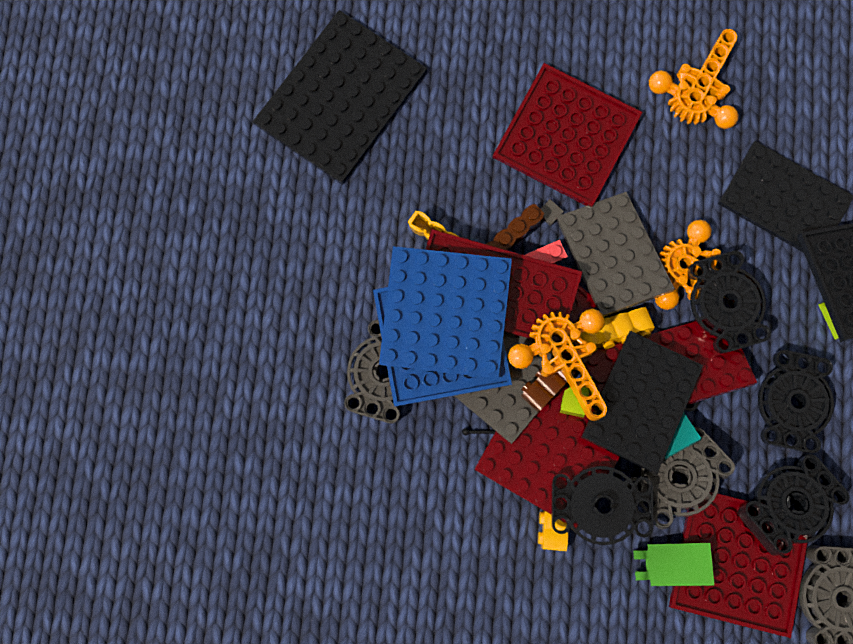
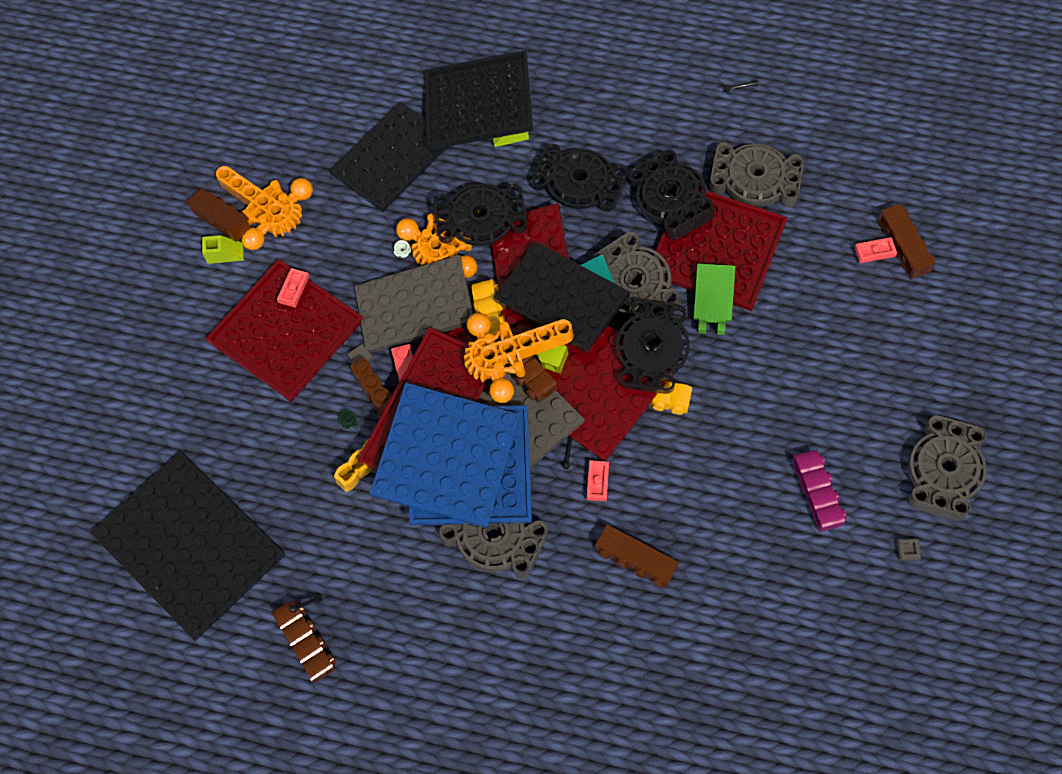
camera: 80 degrees left, 15 degrees down
(261, 216) = (304, 642): none -> reddish brown brick
(303, 221) = (317, 598): none -> black hinge
(378, 514) = (636, 556): none -> reddish brown brick
(452, 465) = (597, 481): none -> coral plate
(484, 209) = (347, 415): none -> clear green plate
(610, 132) = (293, 287): none -> coral plate
(642, 55) = (221, 249): none -> lime slope
(676, 226) = (402, 245): none -> light aqua plate
(679, 42) = (219, 214): none -> reddish brown brick

